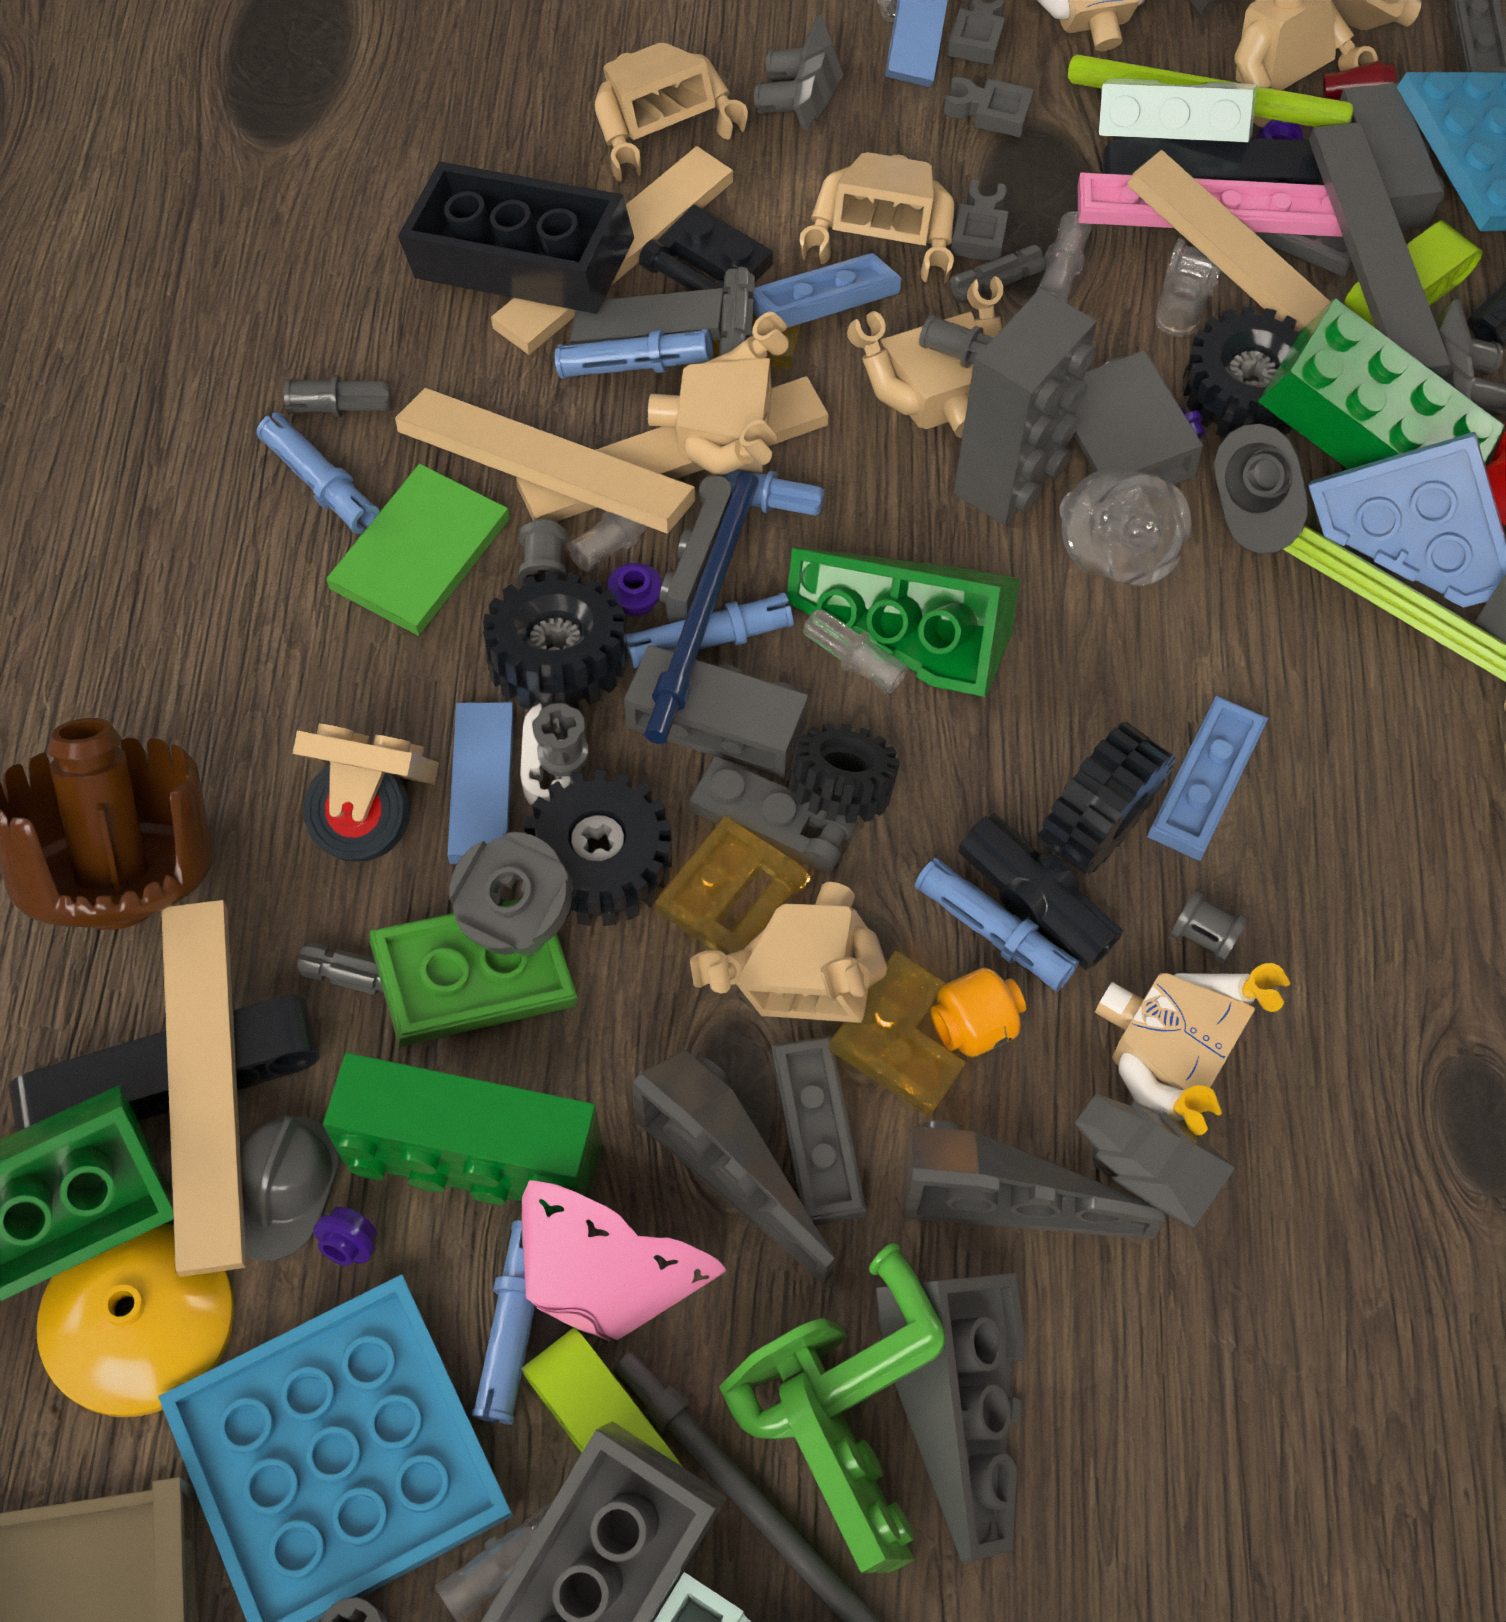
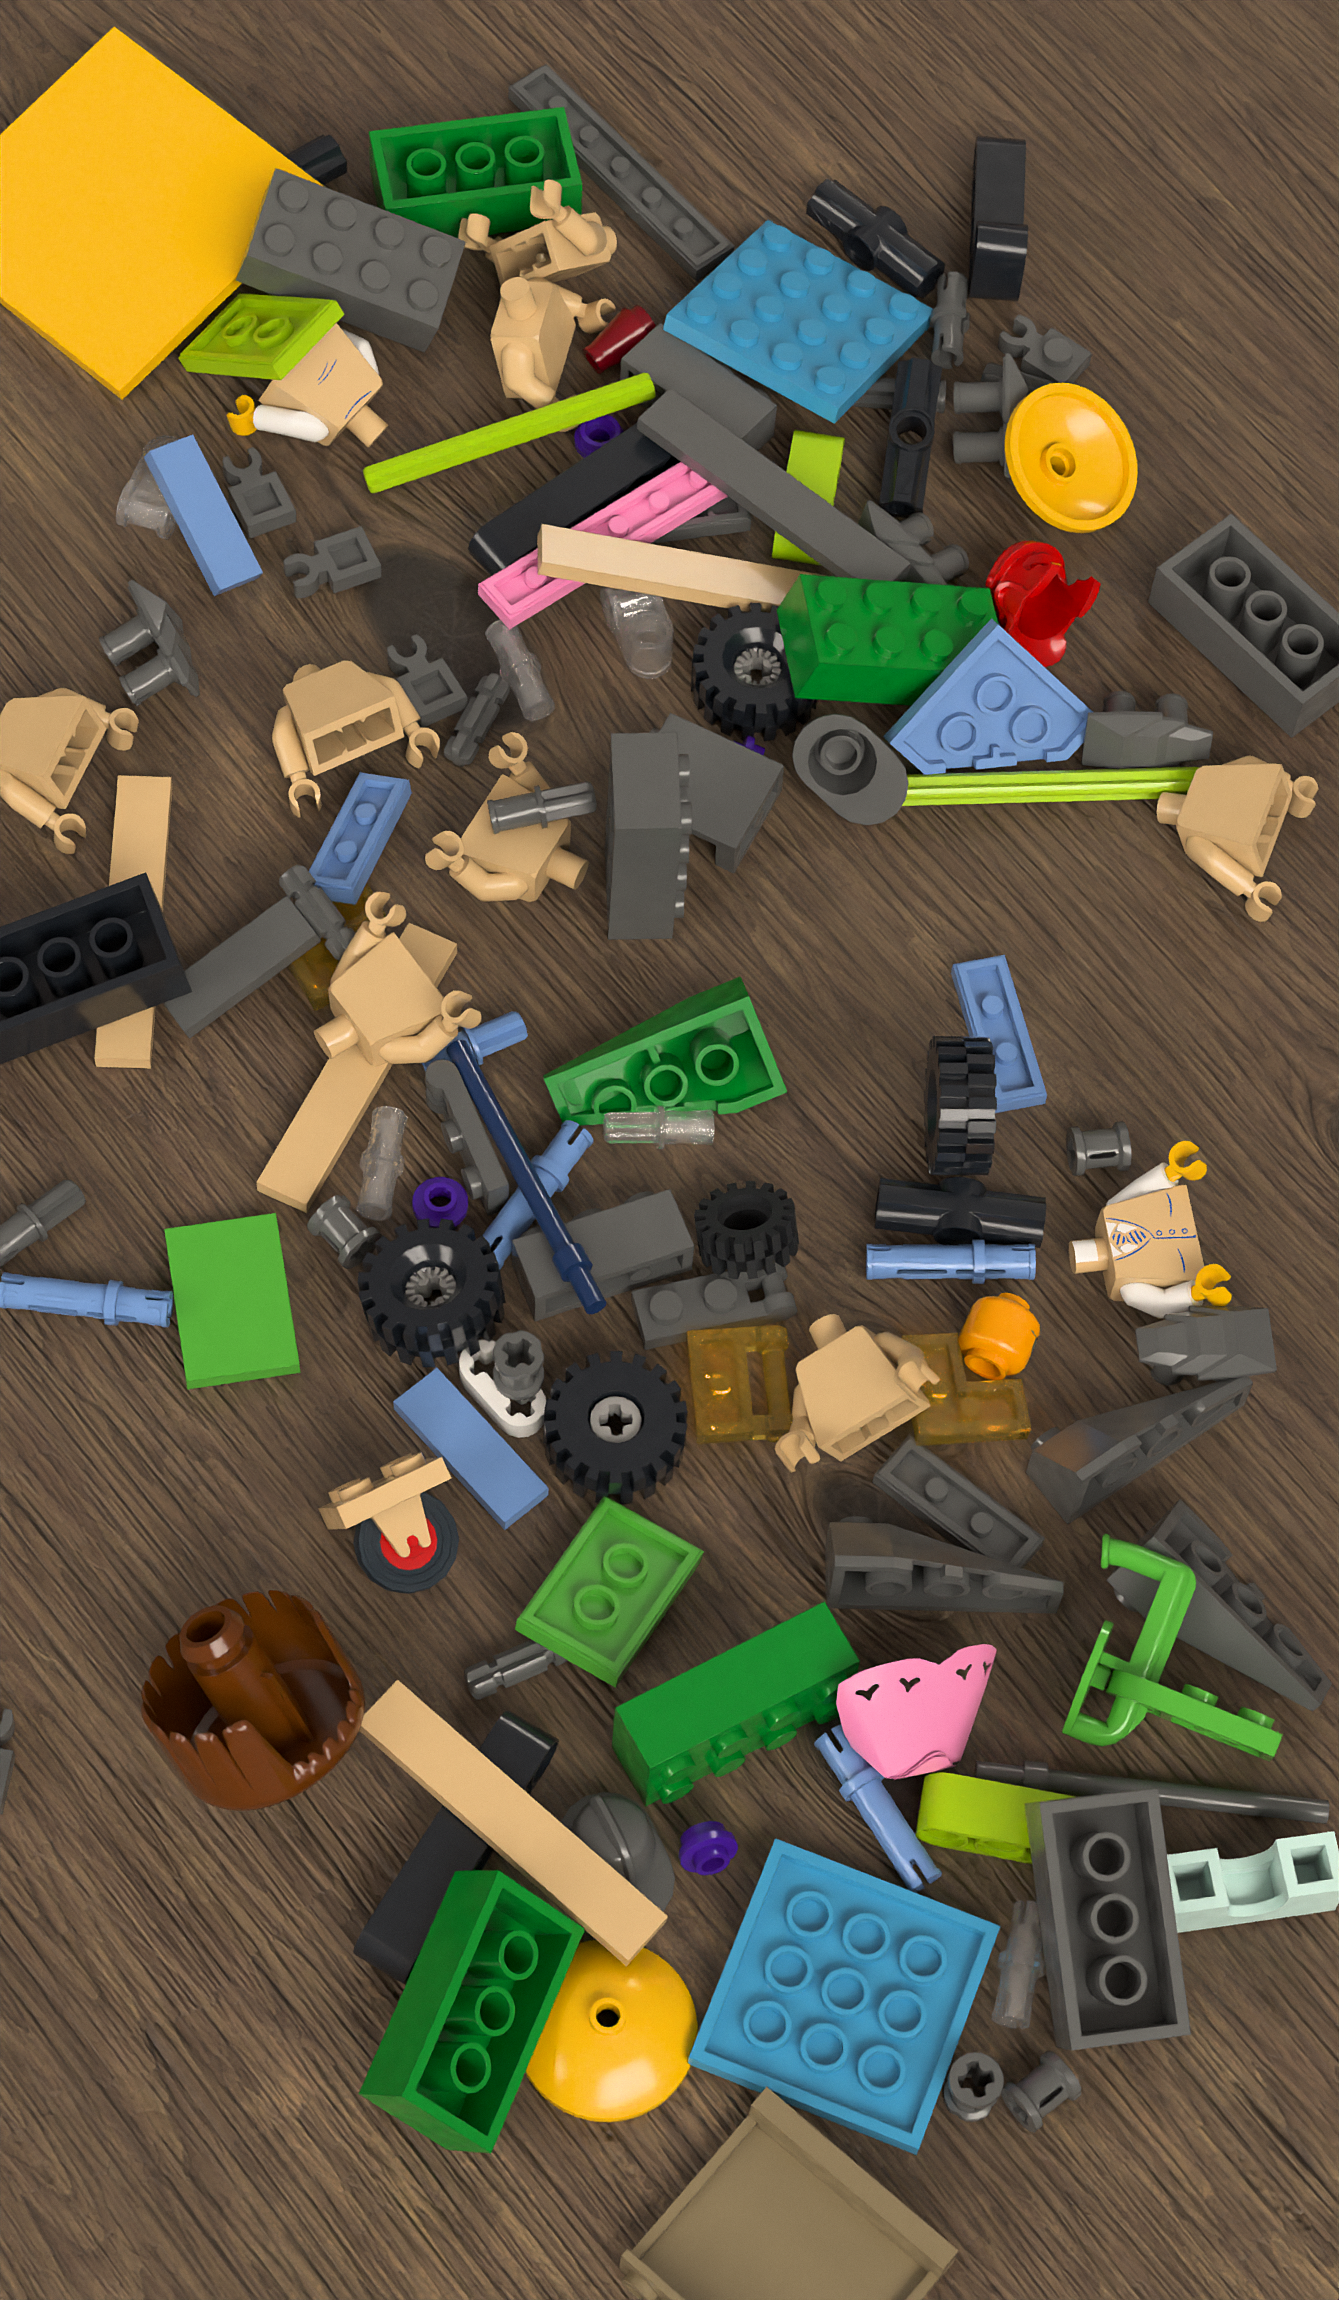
camera: 45 degrees left, 0 degrees up
(524, 924) = (620, 1480): dark grey plate -> none
(546, 460) = (270, 1150): tan tile -> none
(654, 352) = (257, 1004): medium blue pin -> none
(707, 246) = (222, 861): black plate -> none
(1125, 525) = (783, 876): clear brick -> none
(1177, 111) = (477, 488): light aqua arch -> none

